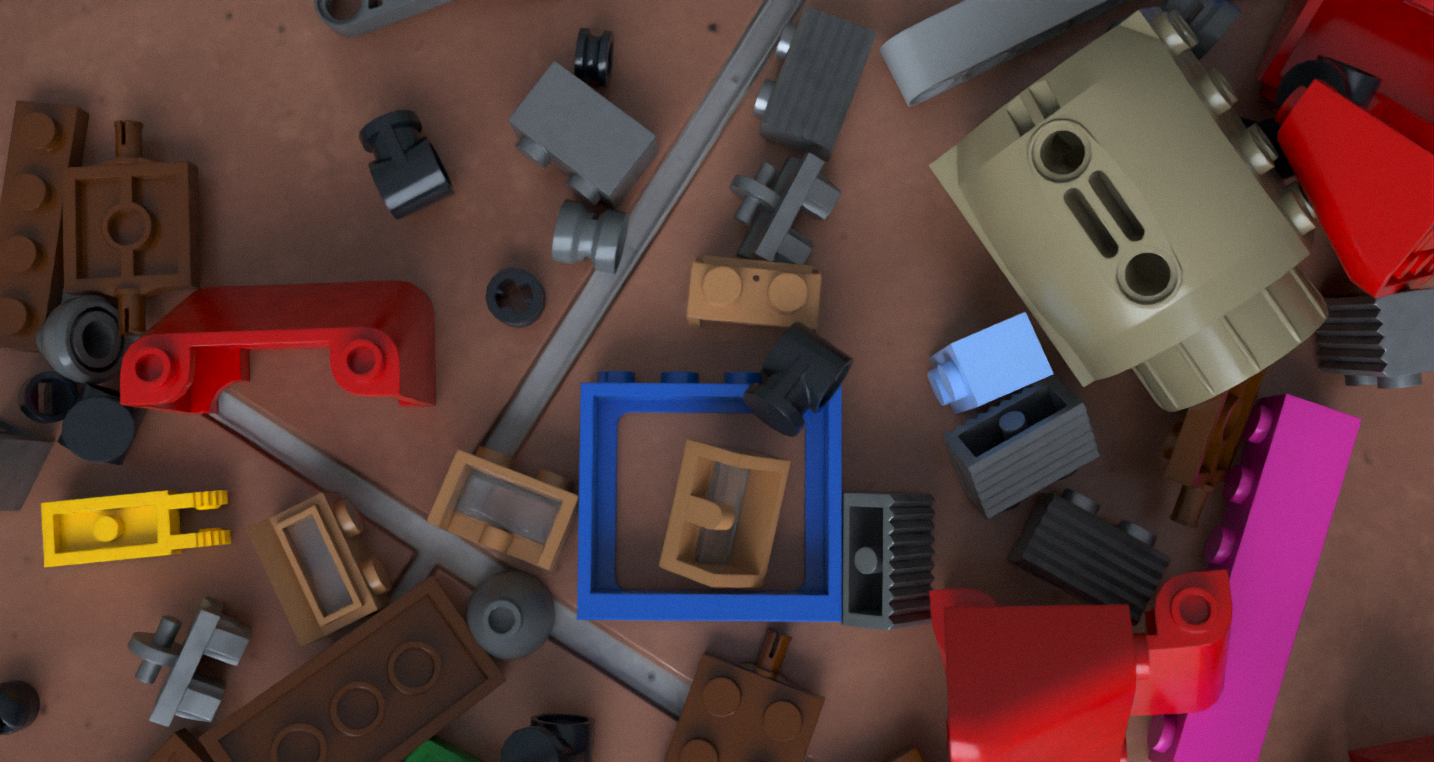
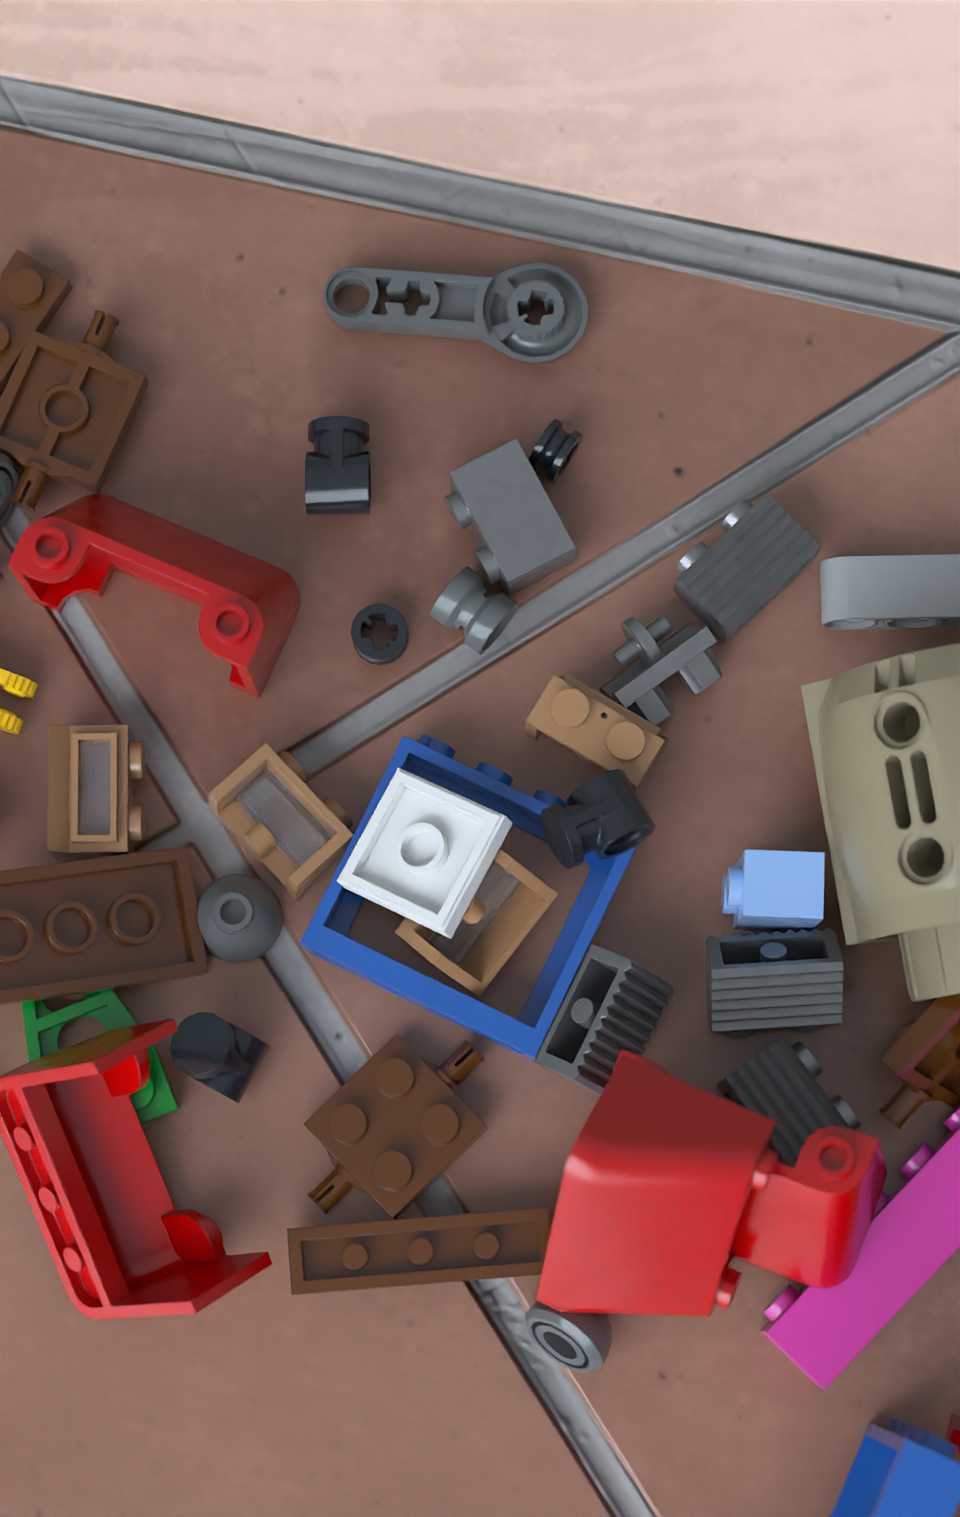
camera: 25 degrees right, 5 degrees down
(653, 484) = (424, 852): none -> white tile

